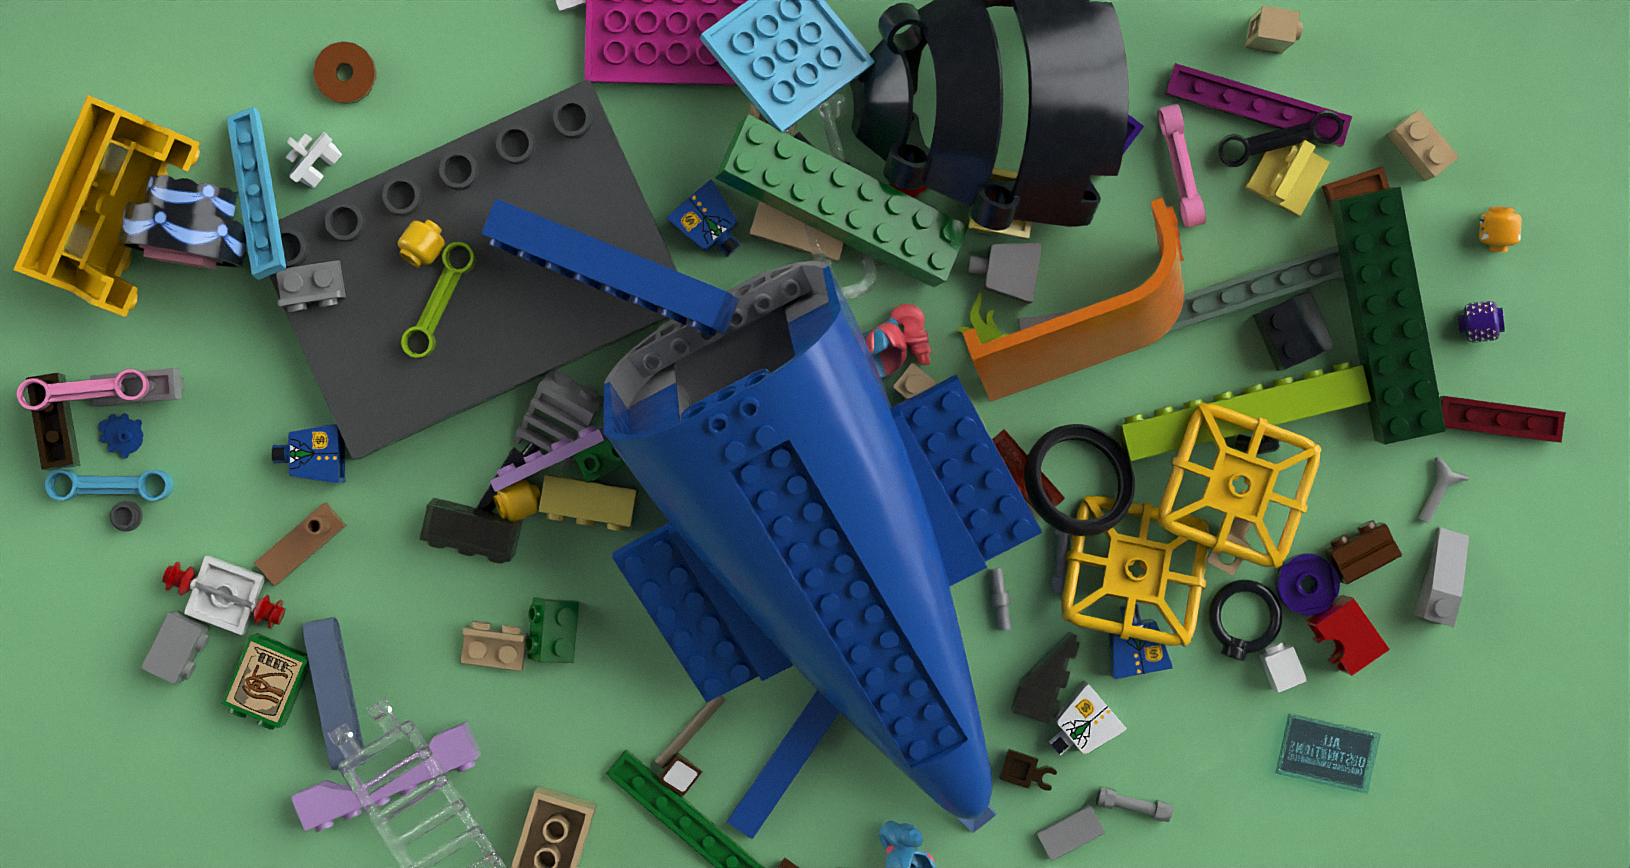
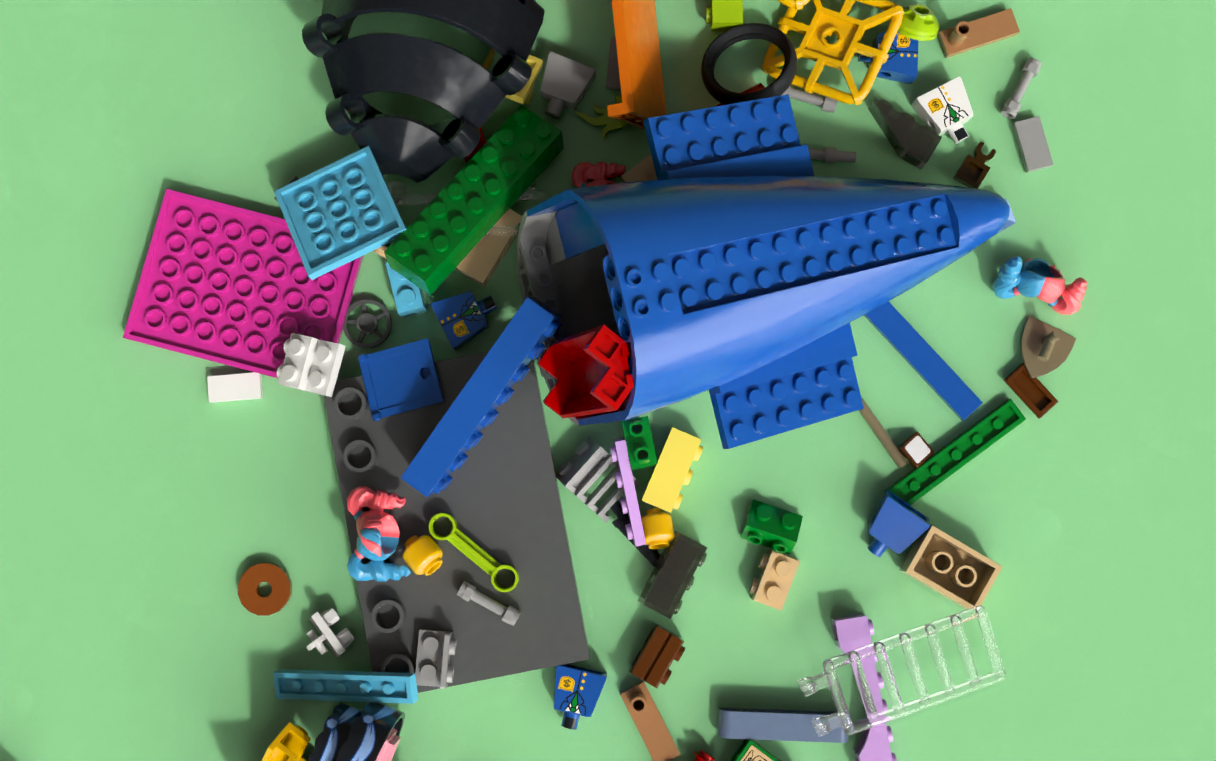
camera: 80 degrees left, 5 degrees down
(376, 533) = (657, 655): none -> reddish brown brick
(379, 357) = (468, 591): none -> light grey bar
(430, 186) = (376, 535): none -> hair
(587, 770) = (895, 525): none -> blue torso
(606, 60) = (310, 364): none -> white plate
(609, 163) = (395, 379): none -> blue container
(650, 382) = (589, 373): none -> red panel
(674, 111) = (367, 323): none -> dark grey wheel
(713, 147) = (407, 296): none -> medium azure brick
(1173, 667) = (919, 23): none -> lime piece
(1189, 740) = (978, 33): none -> medium nougat piece

